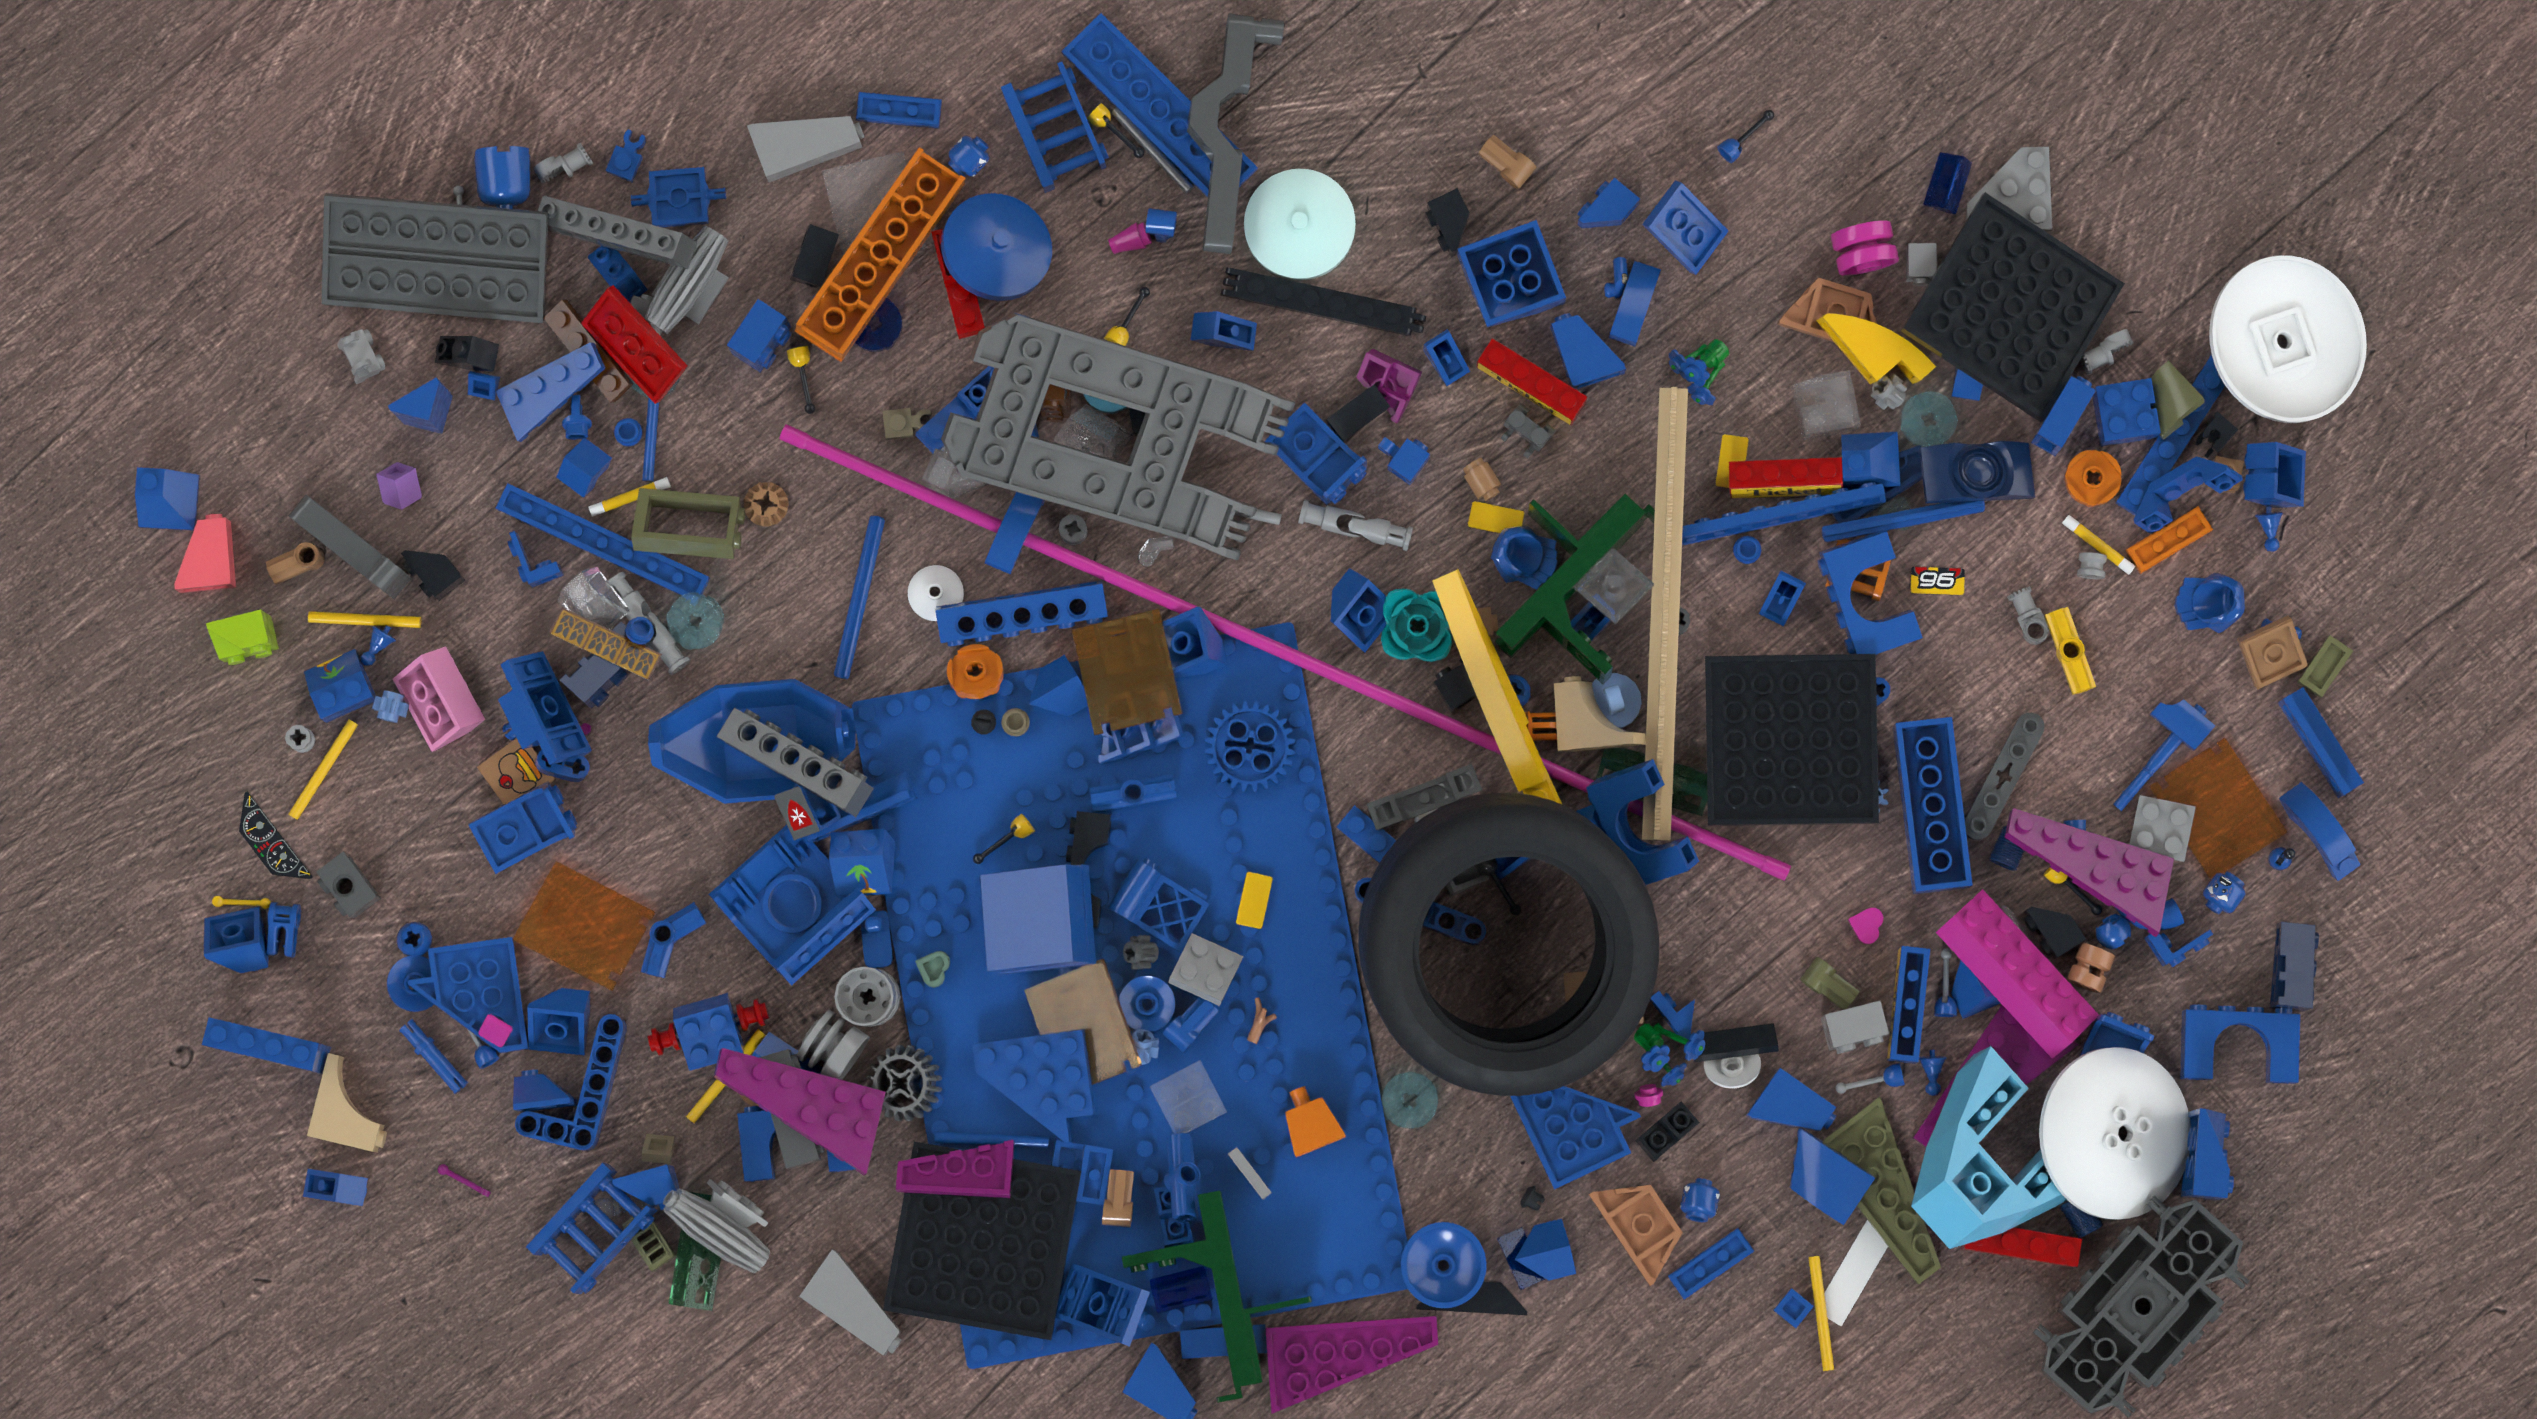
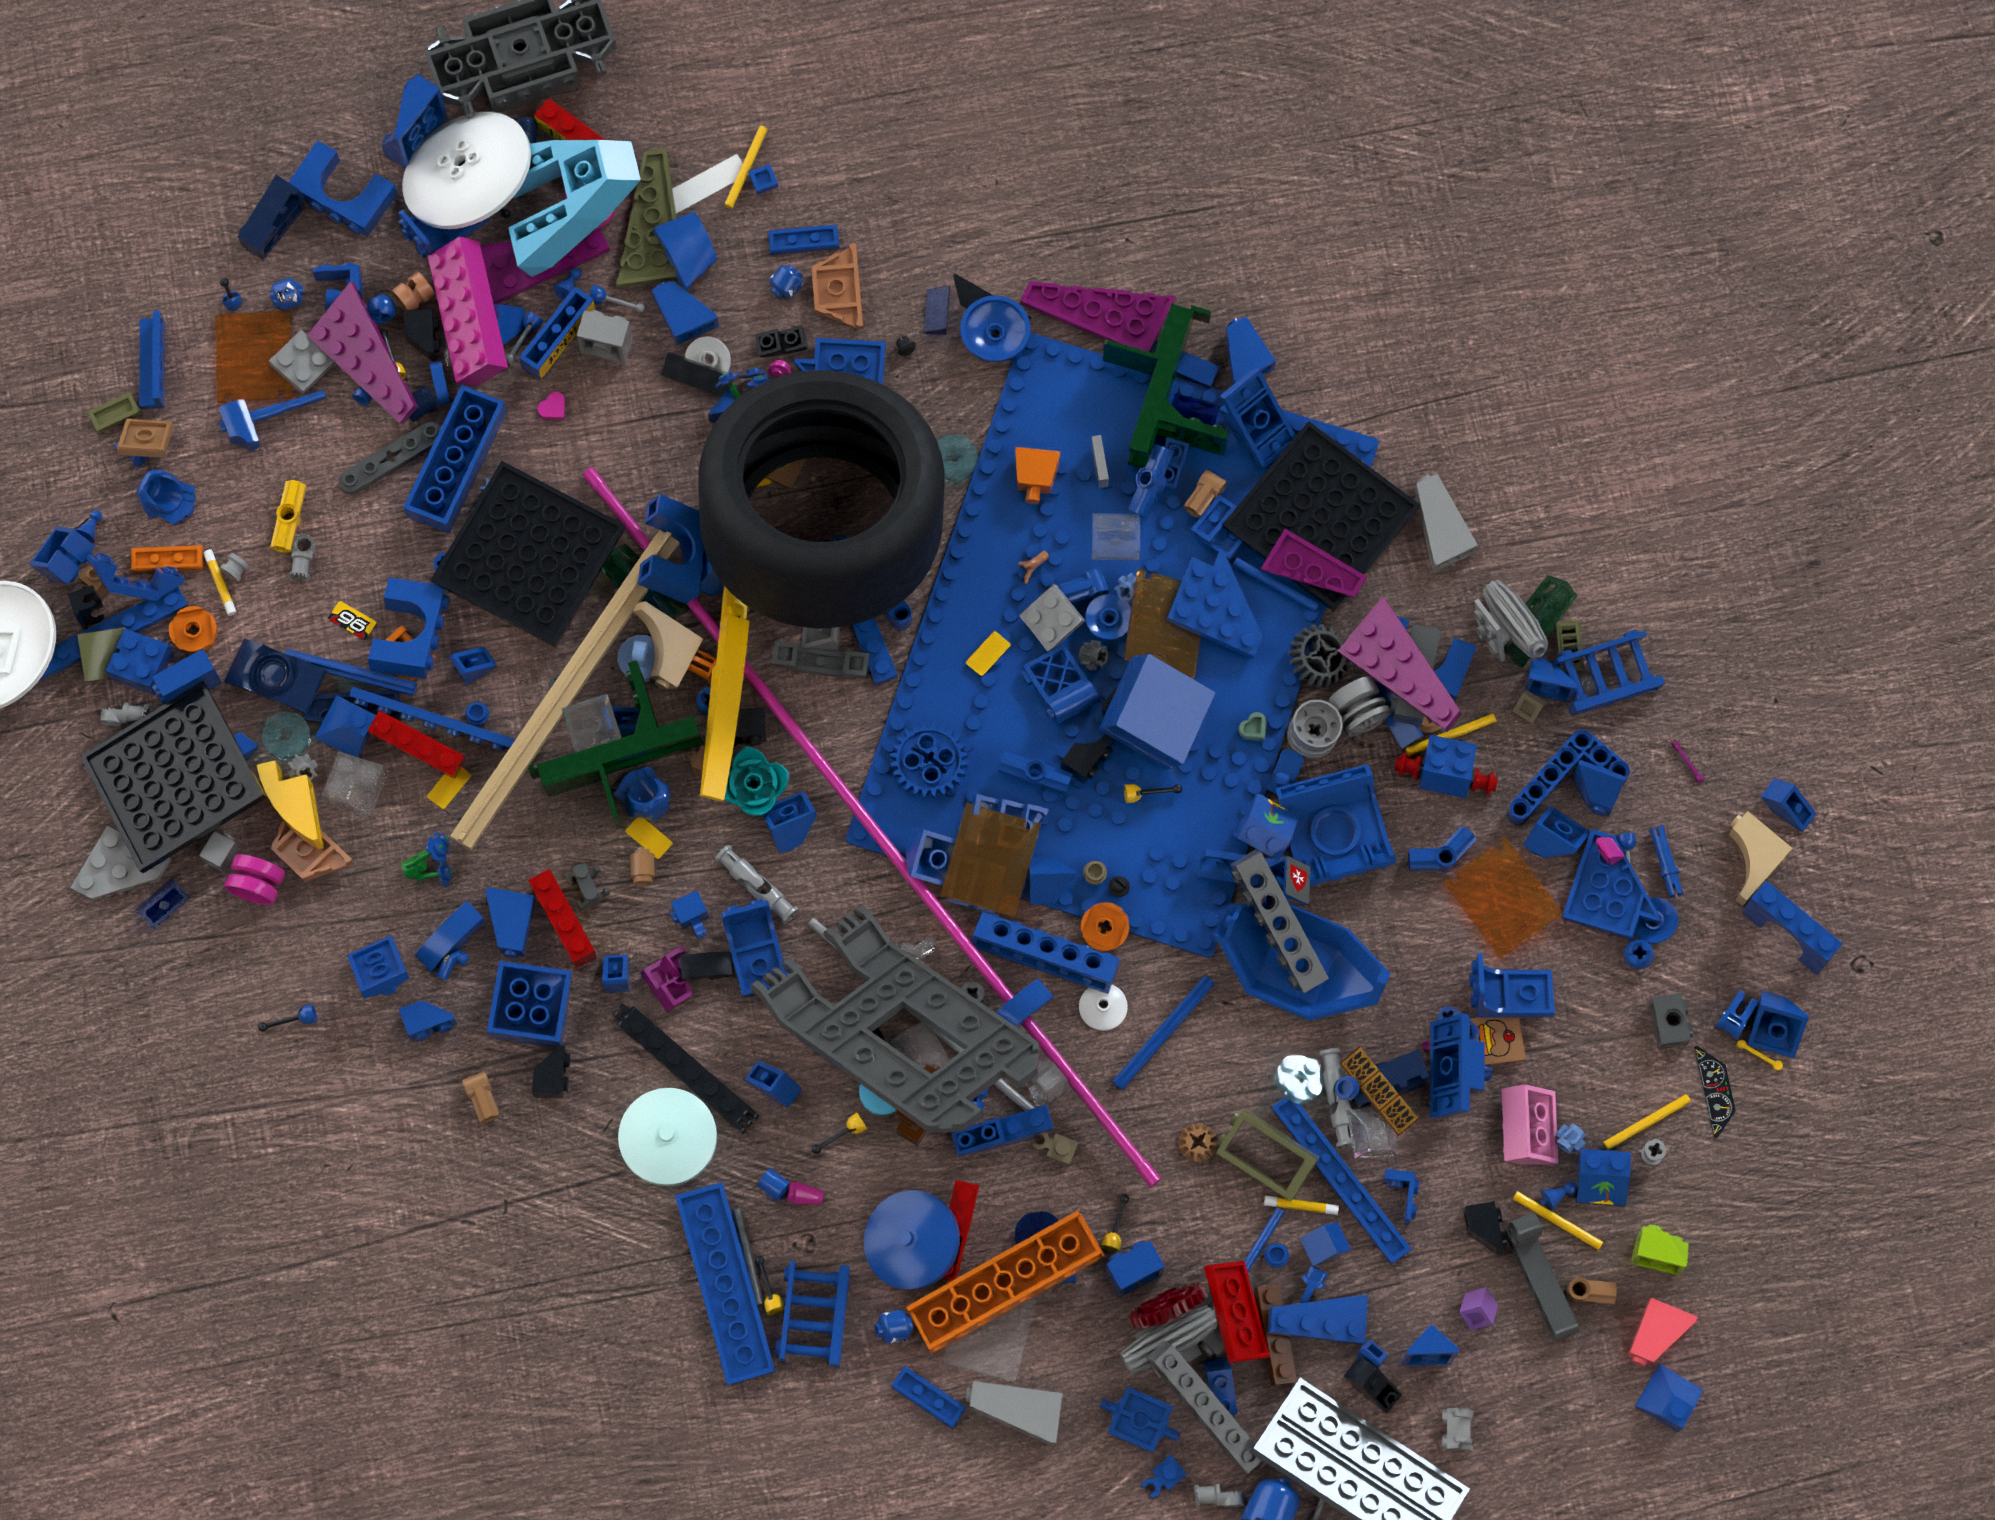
camera: 160 degrees left, 10 degrees down
(704, 312) = (1168, 1305): none -> dark red gear
(814, 256) = (1058, 1313): black hinge -> none
(1203, 123) = (696, 1248): dark grey beam -> none
(1548, 1251) = (913, 305): blue slope -> none
(1824, 980) = (606, 384): olive piece -> none
(2001, 884) = (440, 383): none -> blue beam
(2322, 828) = (190, 301): blue arch -> none

